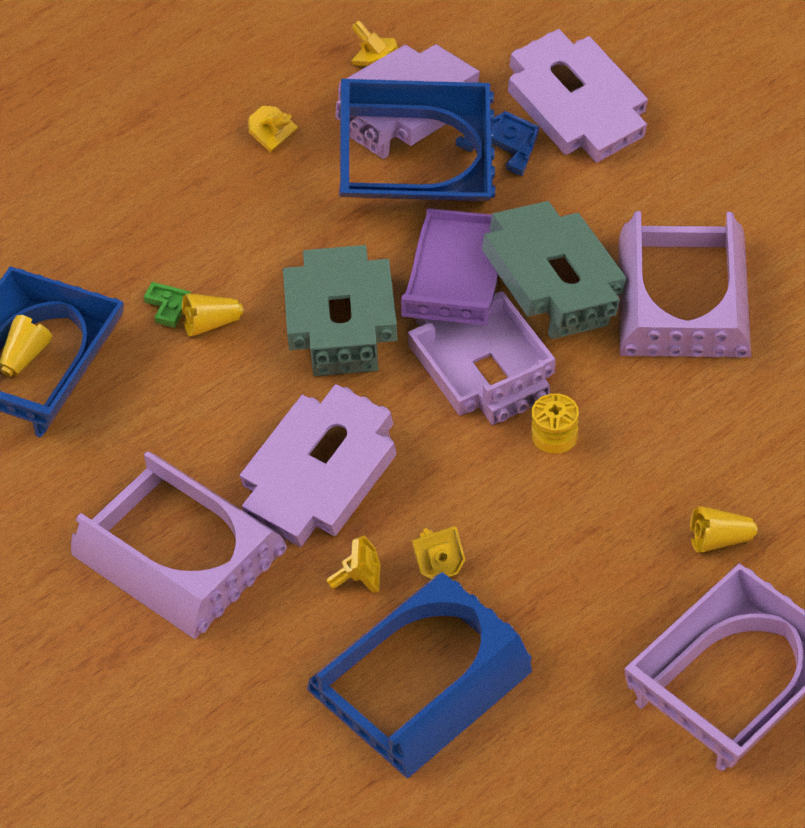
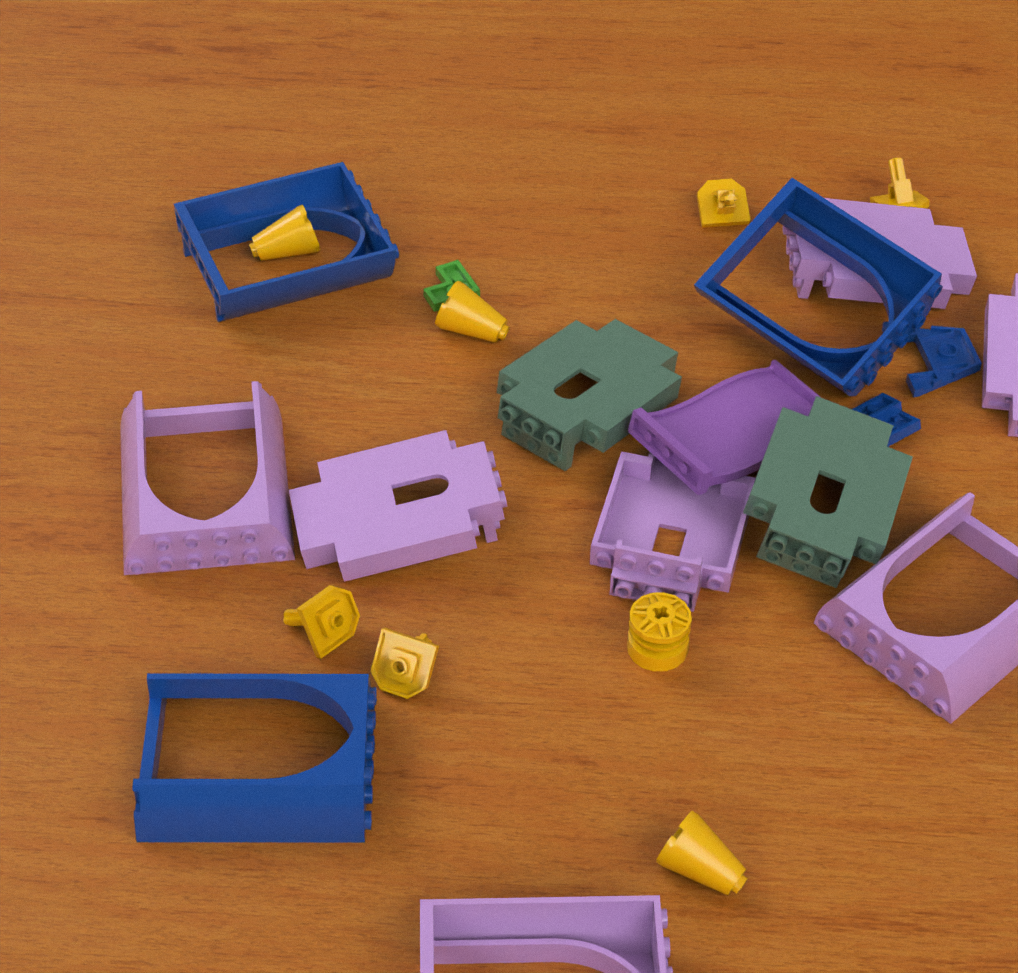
camera: 40 degrees right, 5 degrees down
(517, 196) = (890, 411): none -> blue slope

